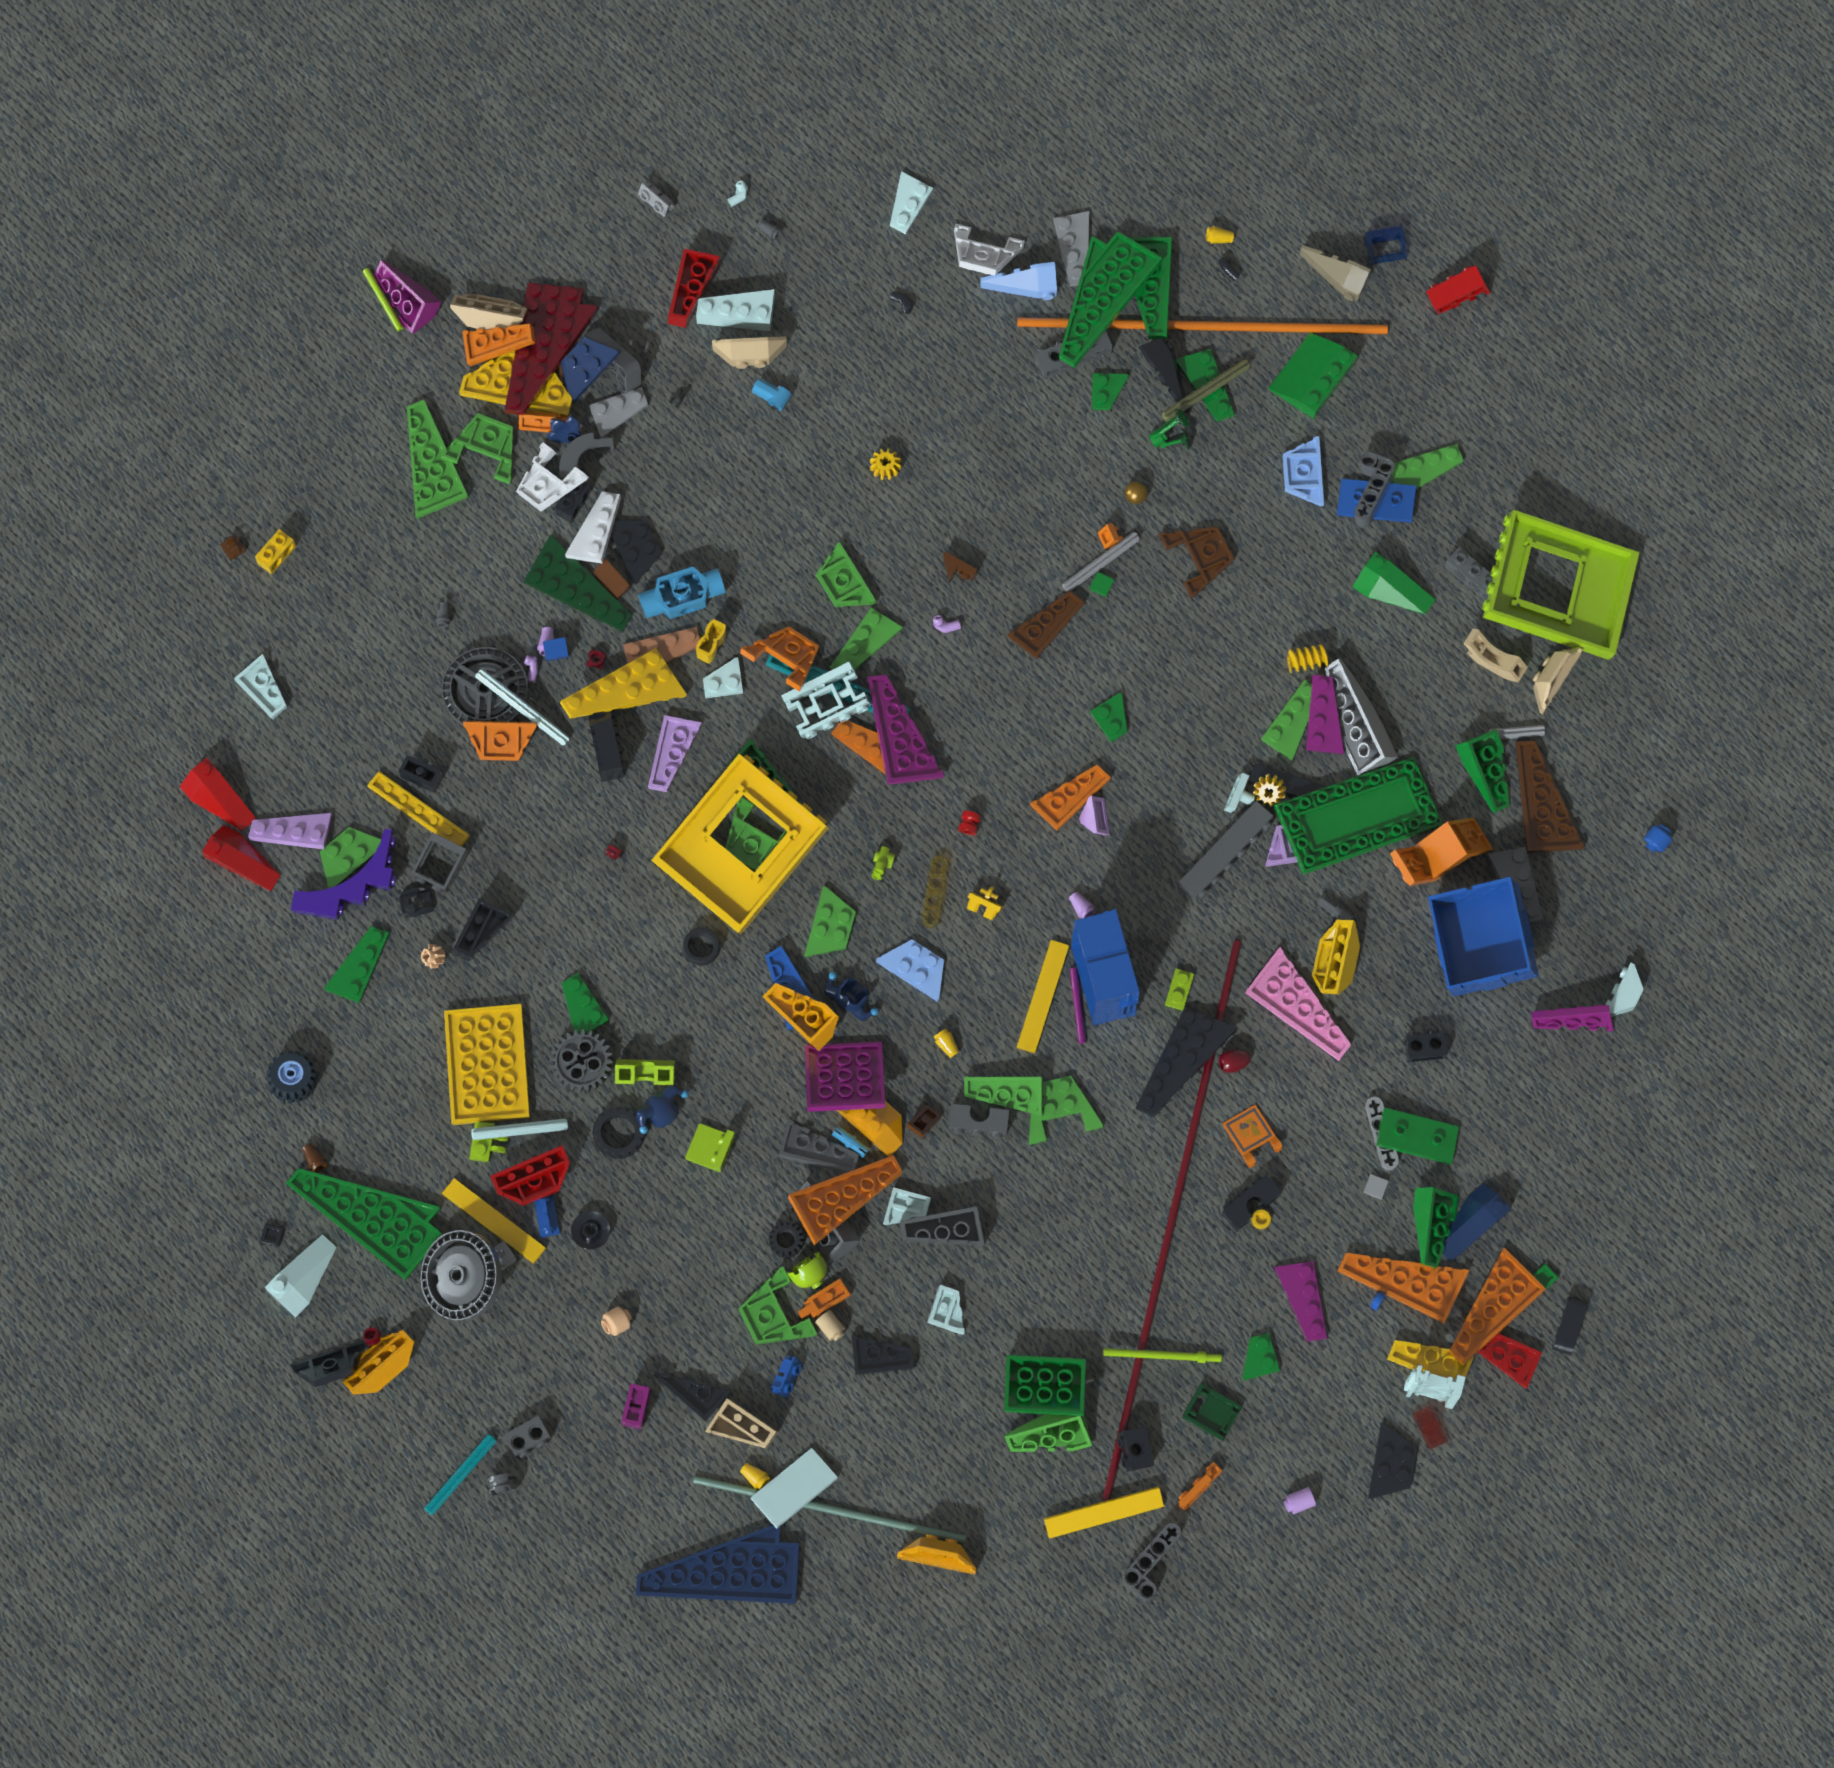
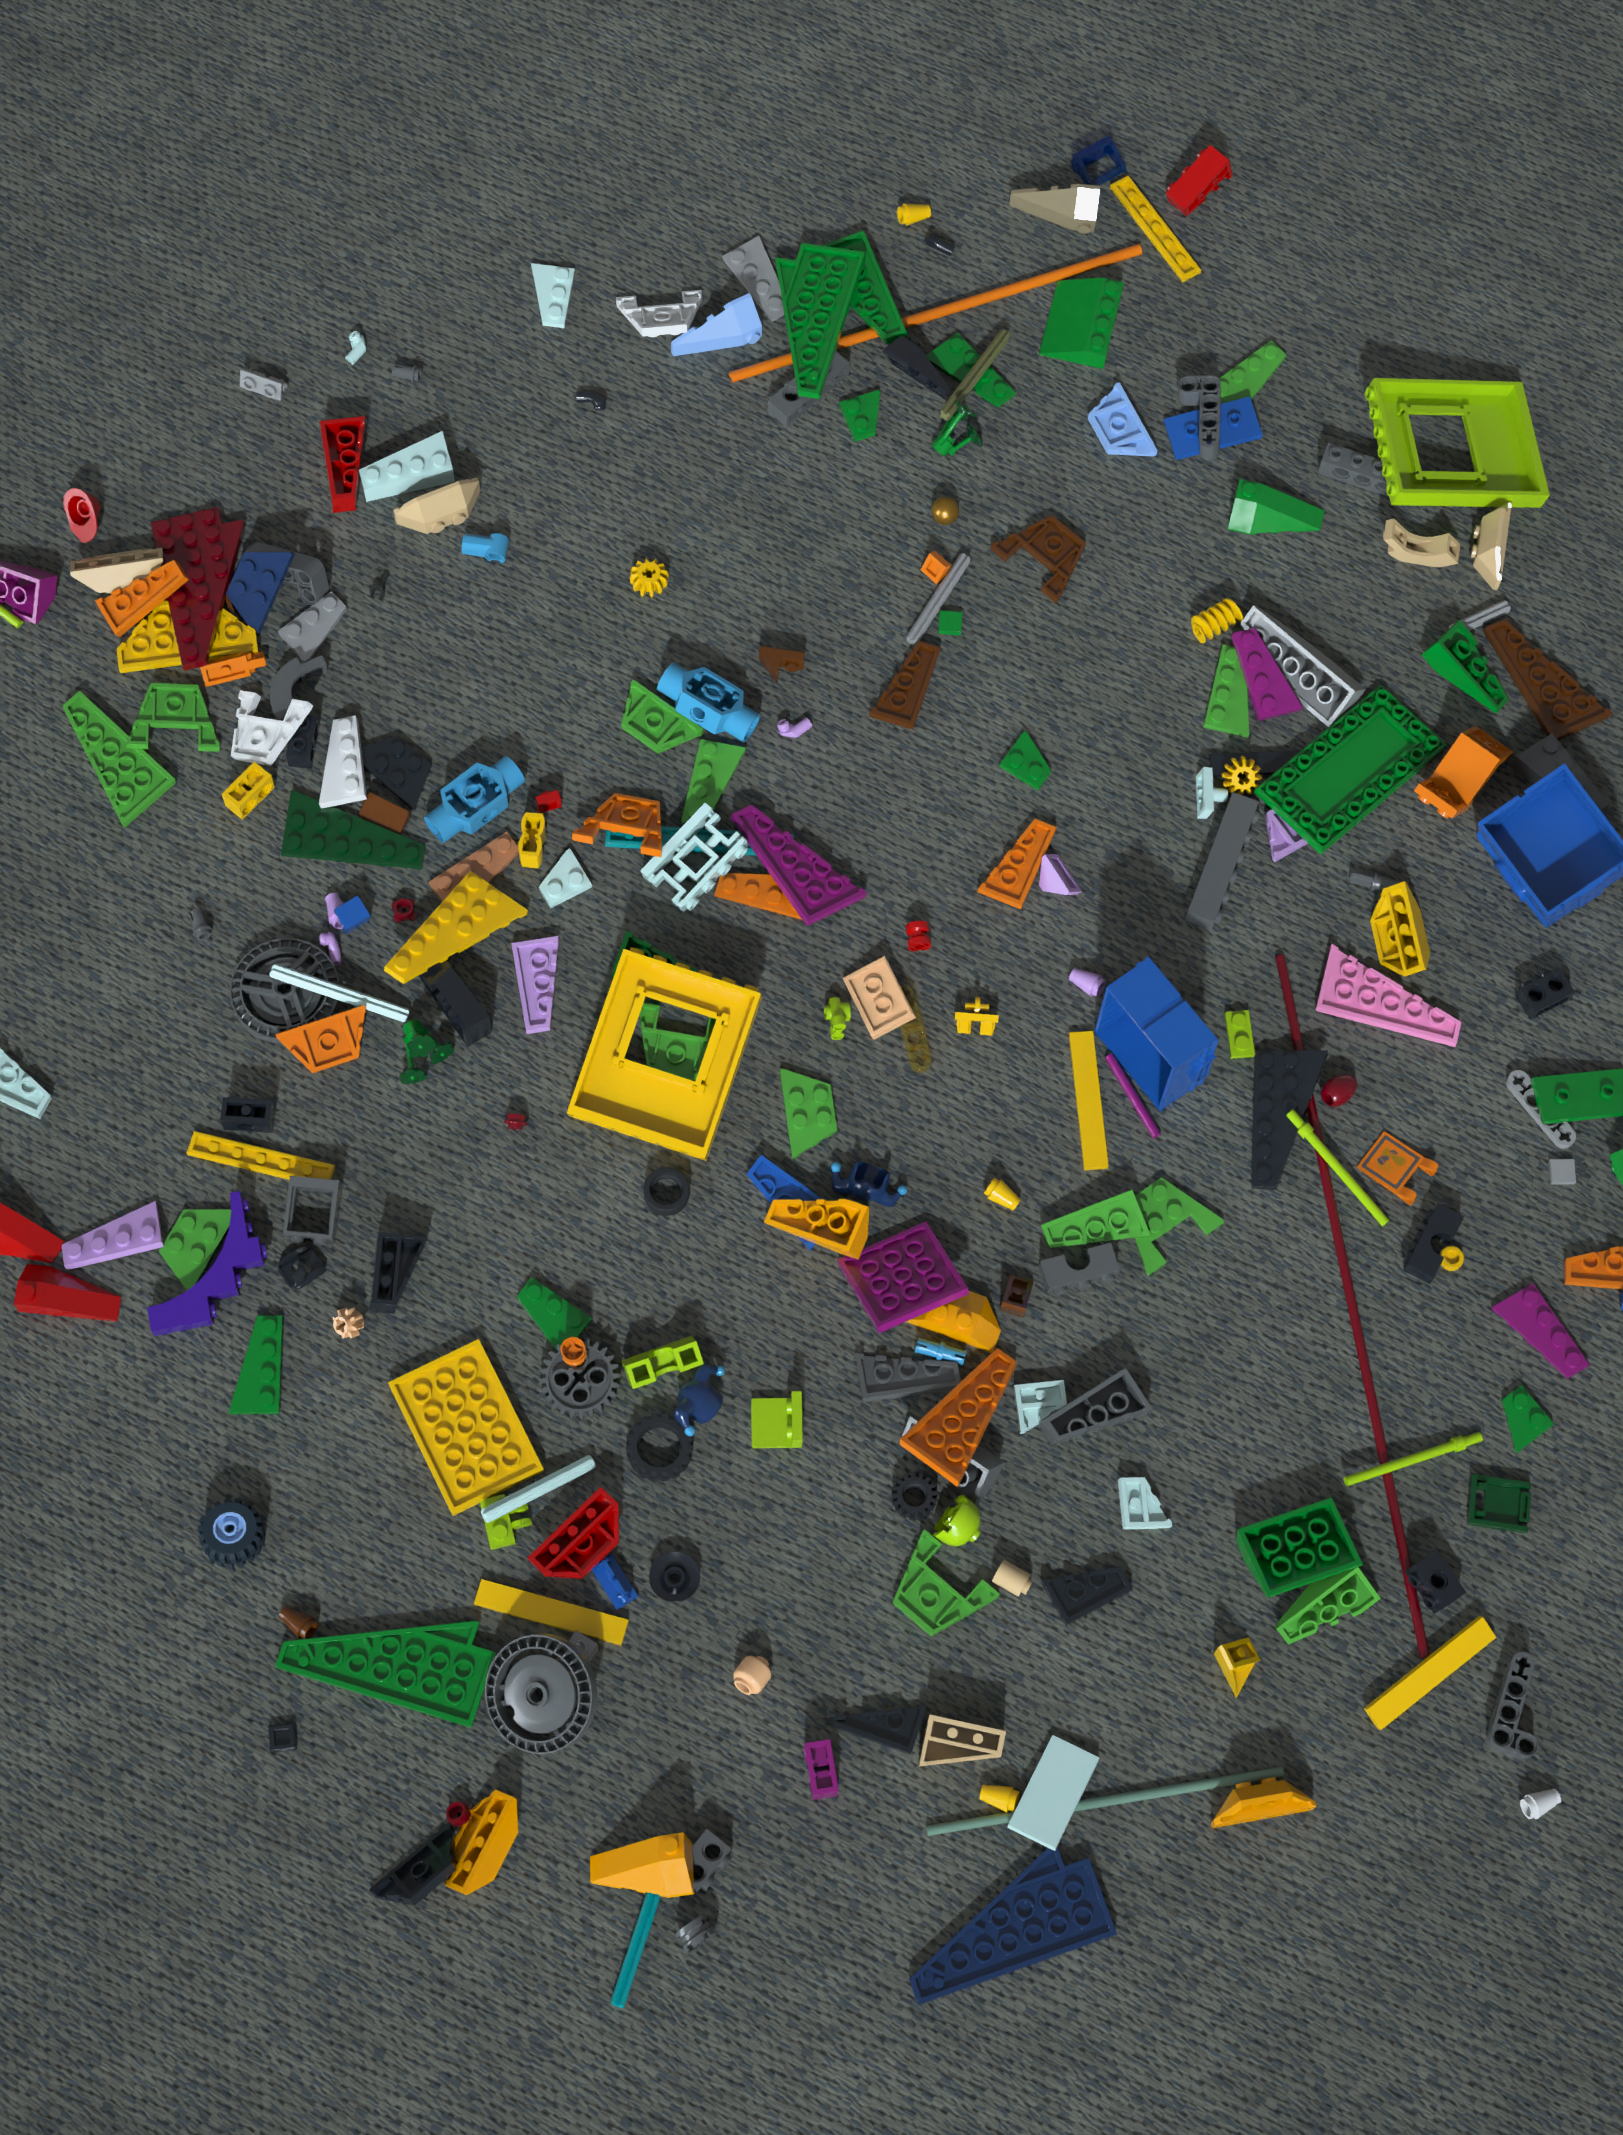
camera: 25 degrees left, 5 degrees down
(301, 1277) = (340, 1777): light aqua wedge -> none
(479, 251) = (78, 507): none -> piece
(489, 1425) = (652, 1866): none -> light orange wedge
(517, 524) = (248, 790): none -> yellow brick
(563, 430) = (259, 667): dark blue plate -> none
(564, 770) = (419, 1043): none -> dark green plant
(580, 1037) = (572, 1346): none -> orange wheel
(736, 614) = (548, 801): none -> red plate
(790, 1368) = (985, 1648): blue hinge -> none
(825, 1299) = (991, 1550): orange hinge -> none
(888, 581) = (709, 701): none -> dark azure brick
(915, 966) = (927, 1121): light blue wing -> none
(919, 859) = (879, 997): none -> light nougat tile
(967, 1449) = (1237, 1662): none -> yellow slope
(1140, 1635) = (1538, 1803): none -> white cone
(1193, 1082) = (1305, 1130): none -> lime bar
(1200, 1485) = (1526, 1594): orange hinge -> none
(1407, 316) = (1155, 228): none -> yellow tile

